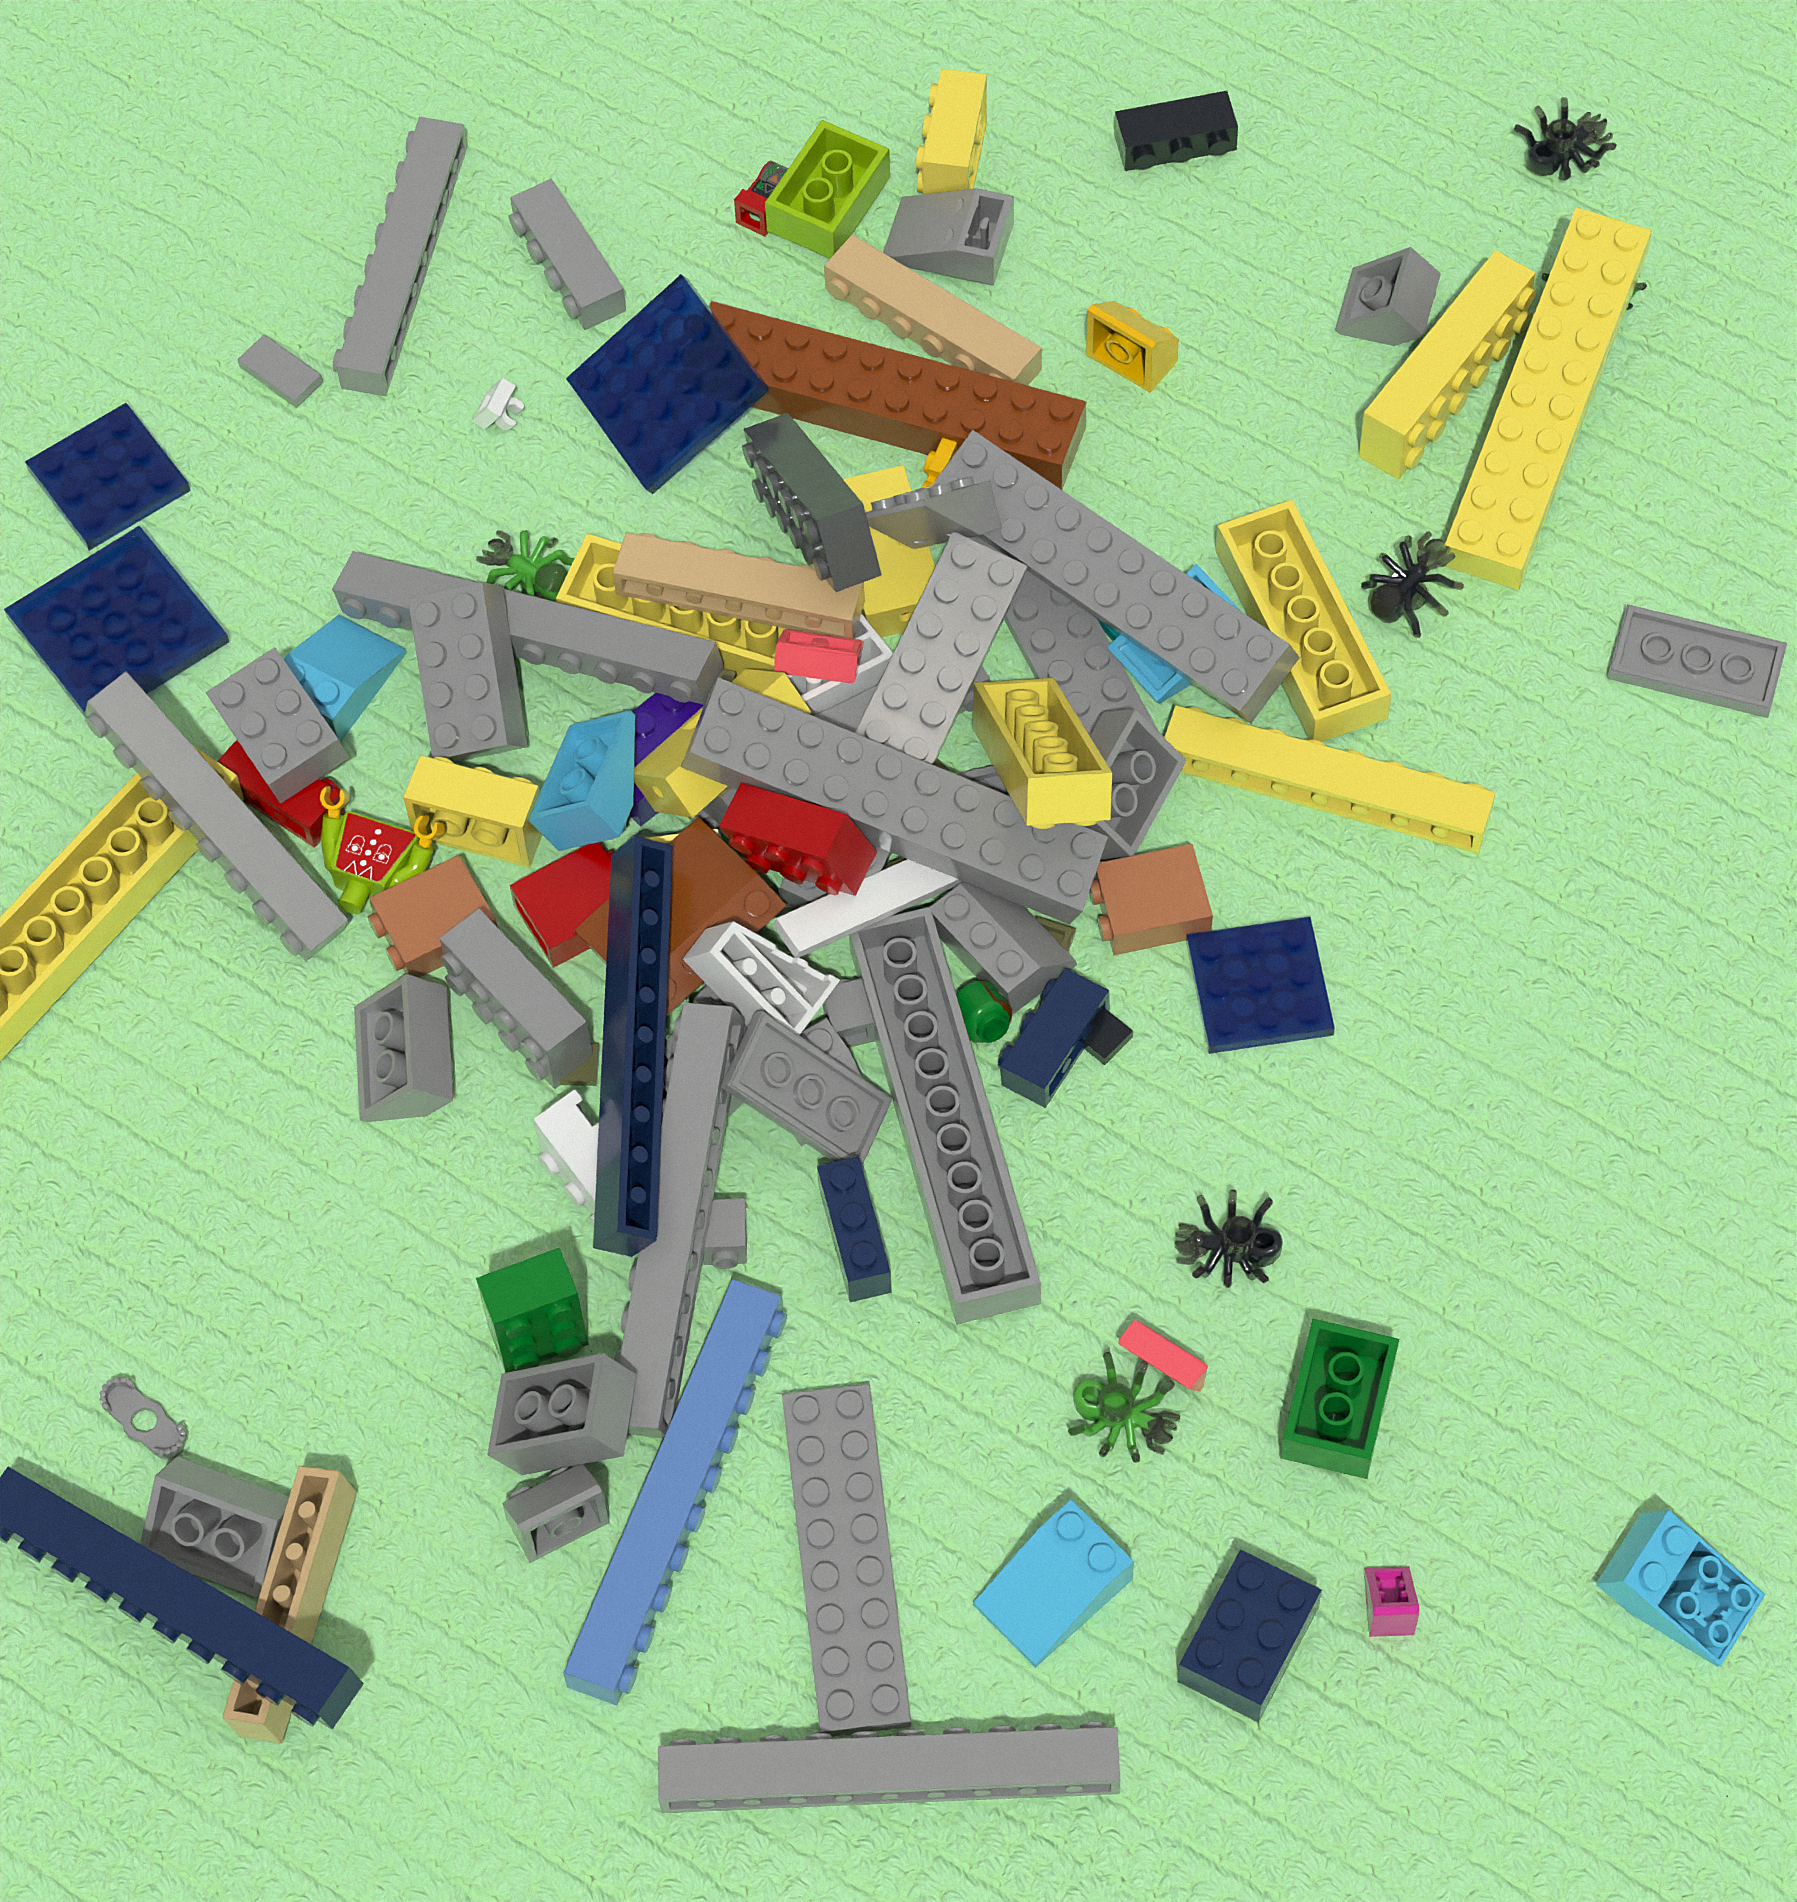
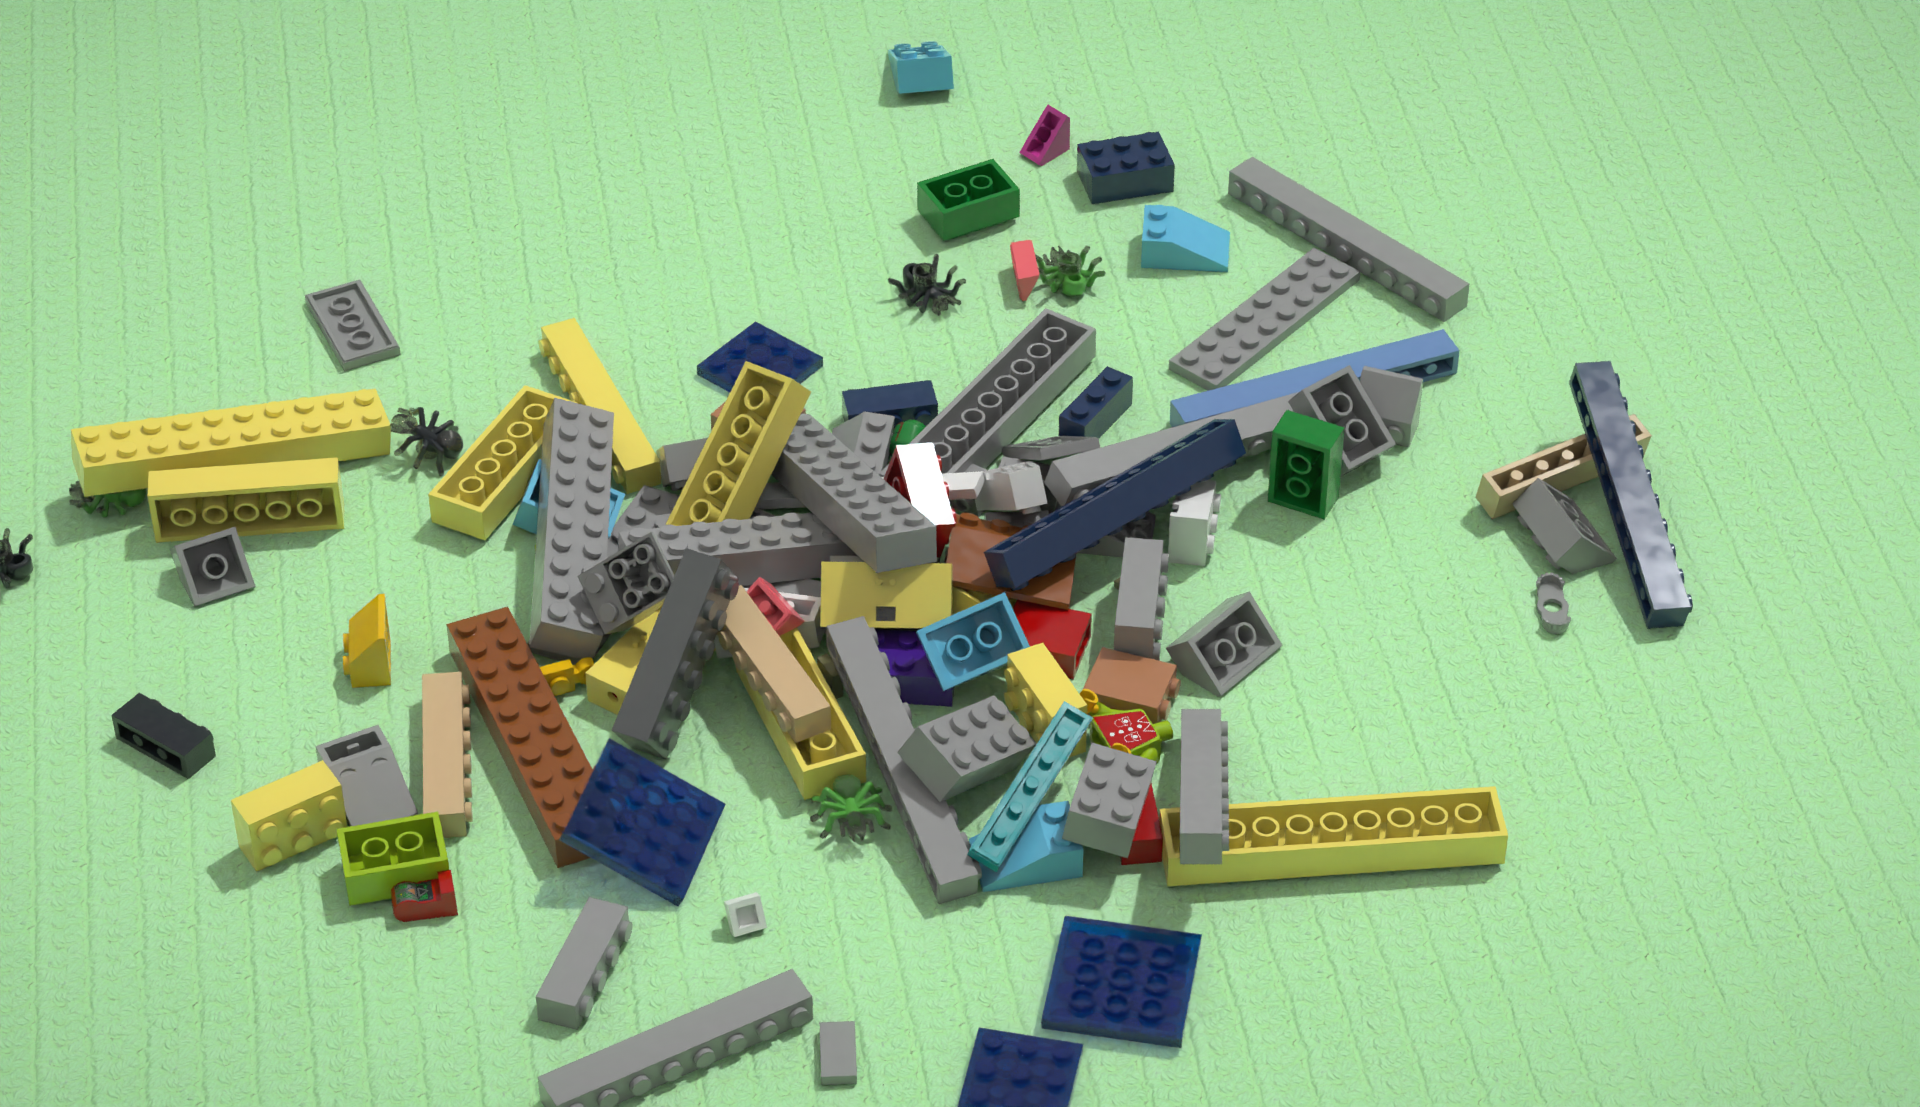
camera: 135 degrees left, 20 degrees down
(369, 687) = (1029, 786): none -> teal tile

